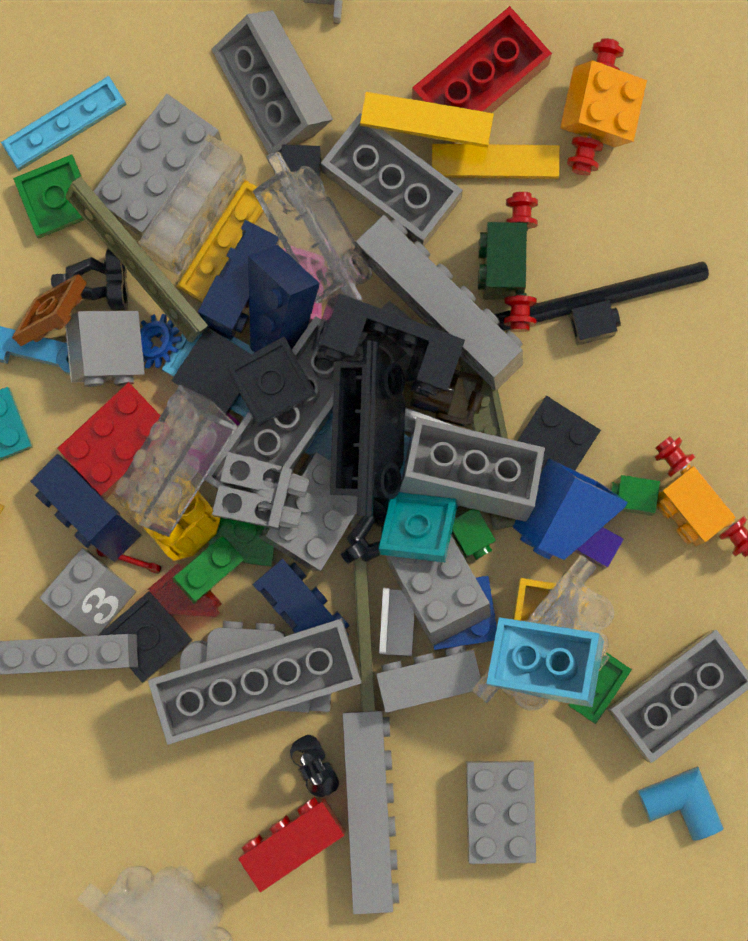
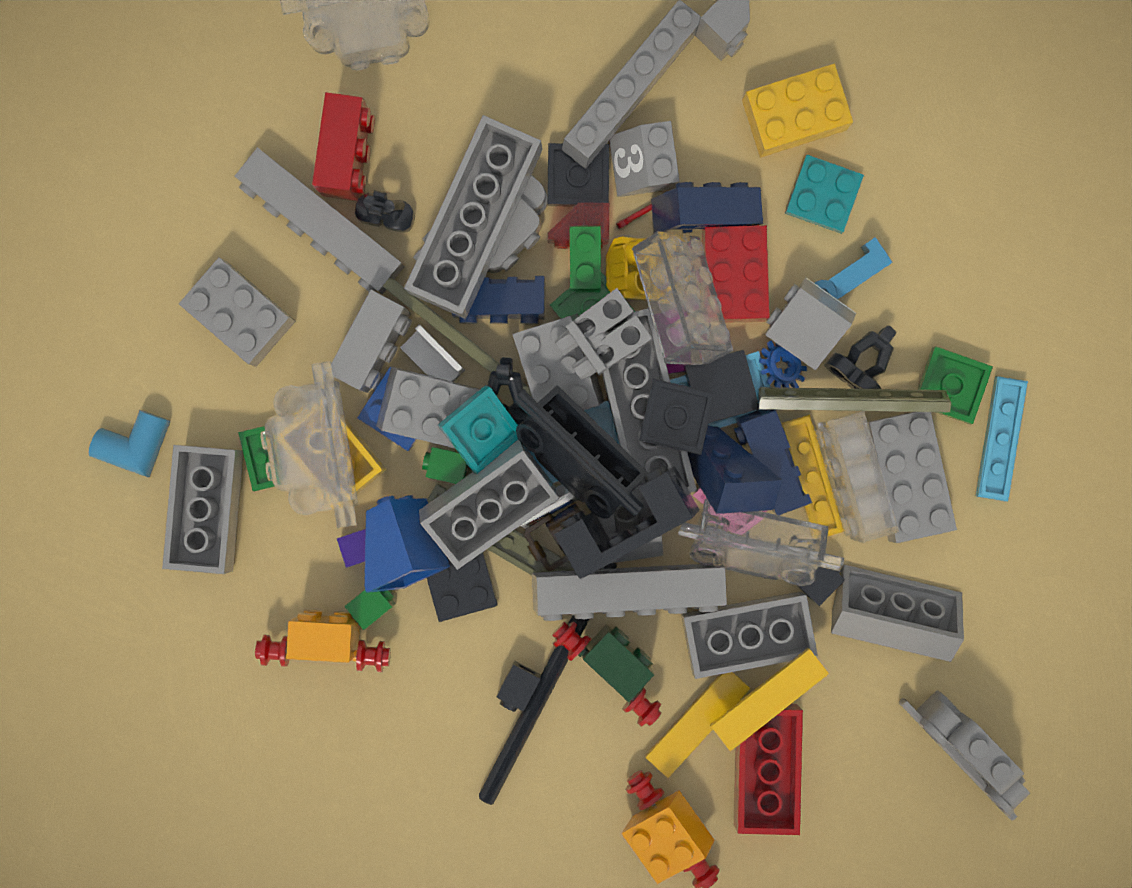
camera: 125 degrees right, 5 degrees up
(50, 310) = (870, 306): dark orange plate -> none
(546, 661) = (301, 430): medium azure slope -> none

